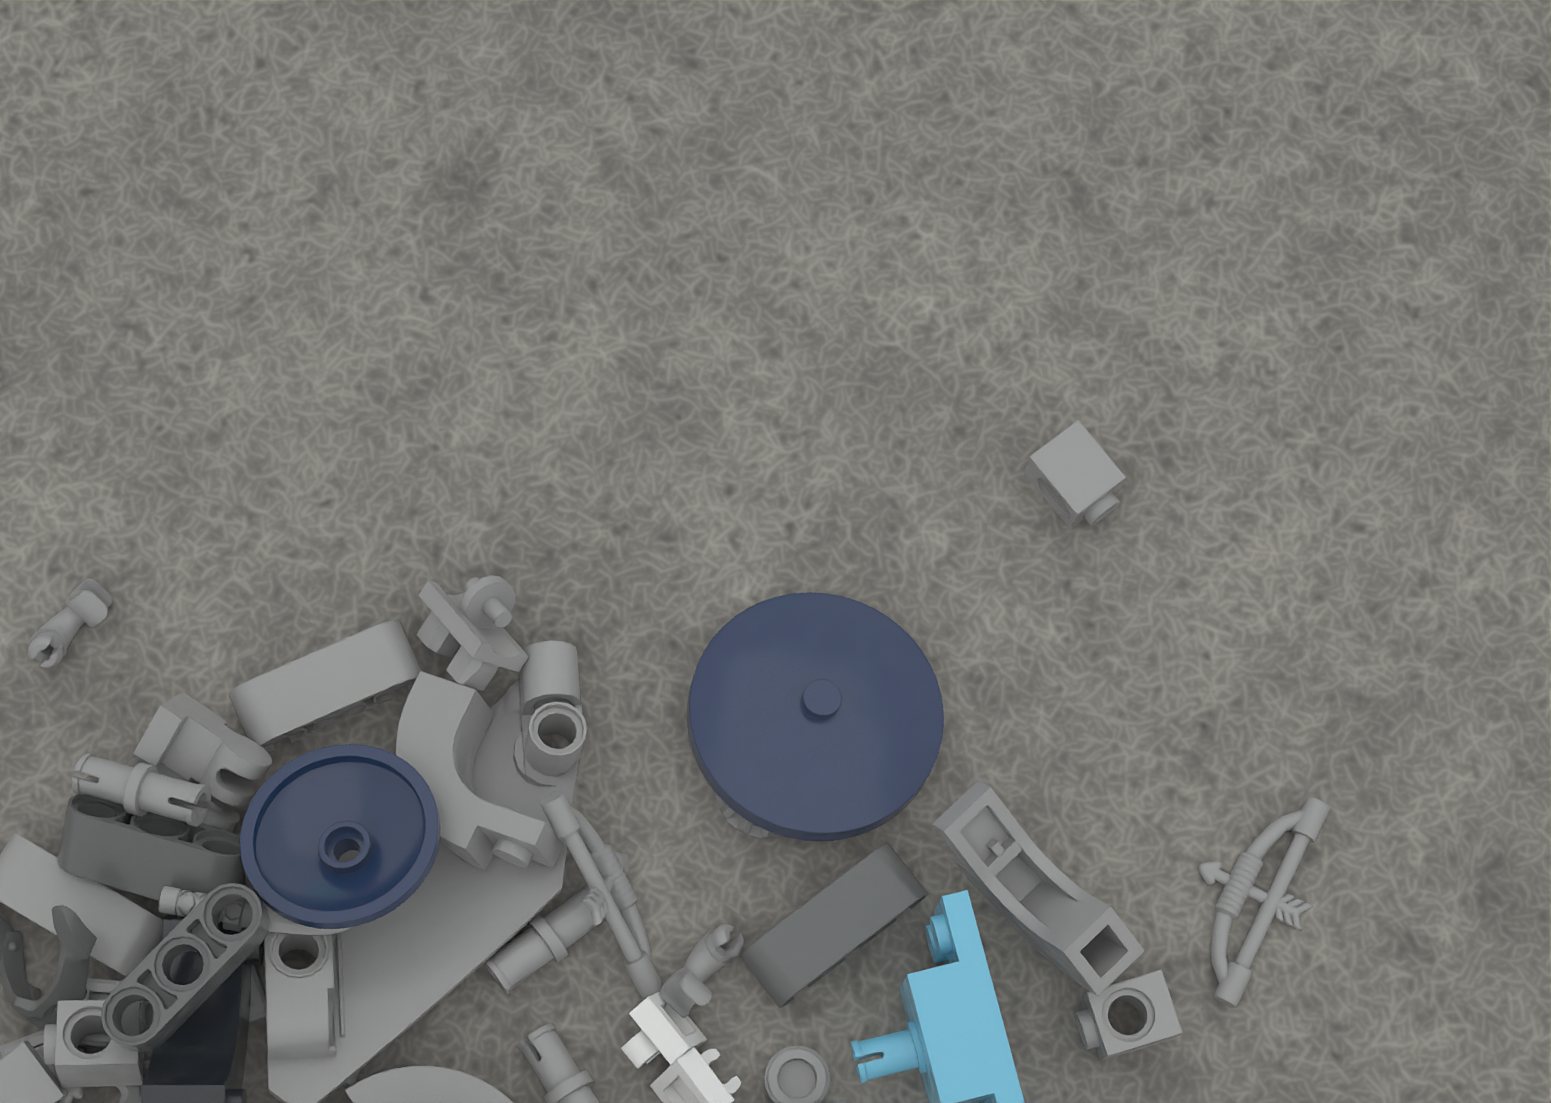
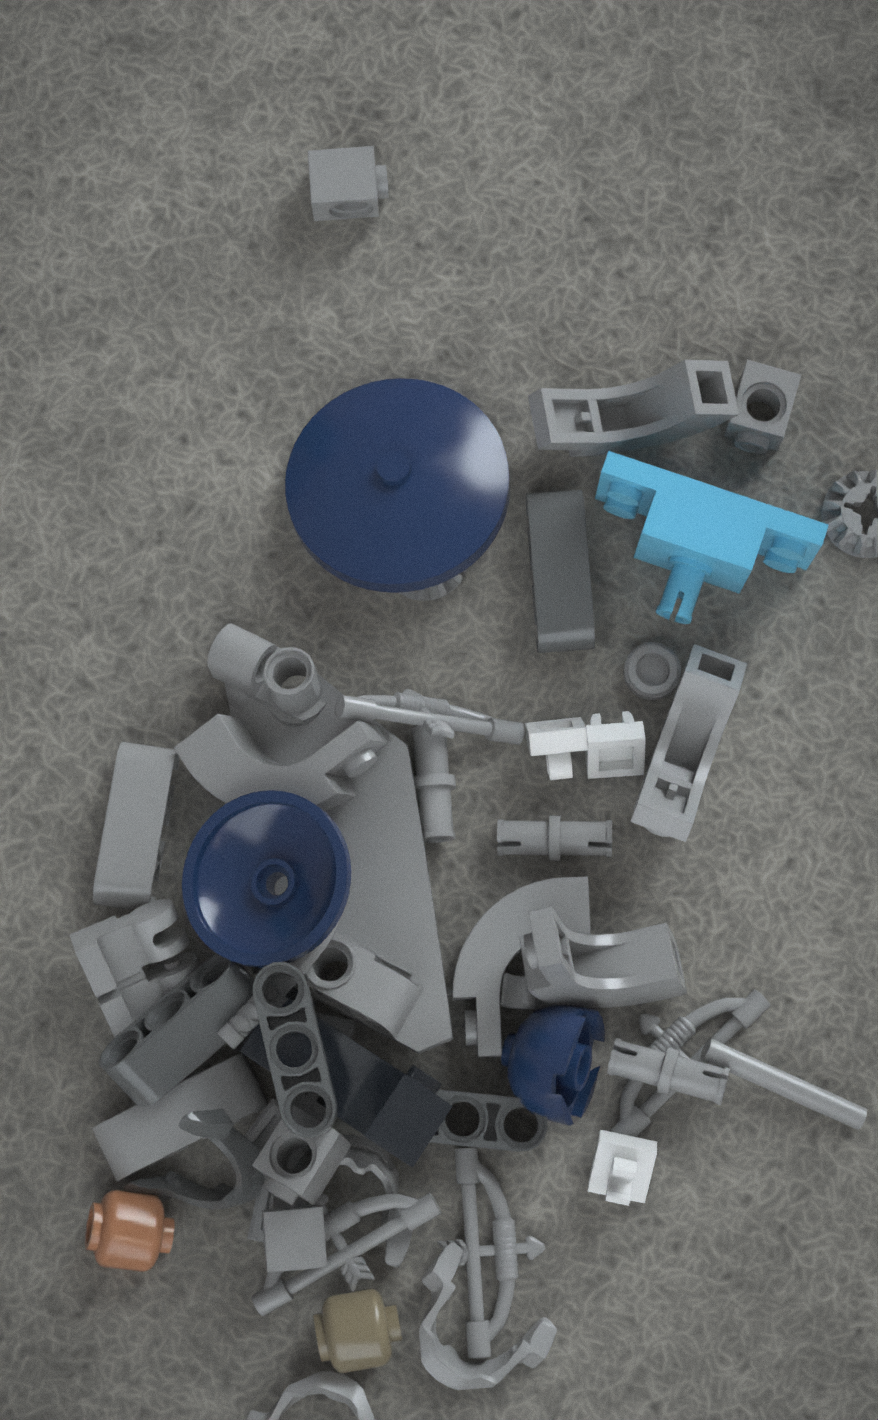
camera: 50 degrees left, 5 degrees up
(141, 789) = (129, 1007): light grey pin -> none
(475, 624) = (164, 681): light grey hips -> none
(707, 957) = (522, 678): light grey arm -> none
(1235, 975) = (717, 271): light grey piece -> none

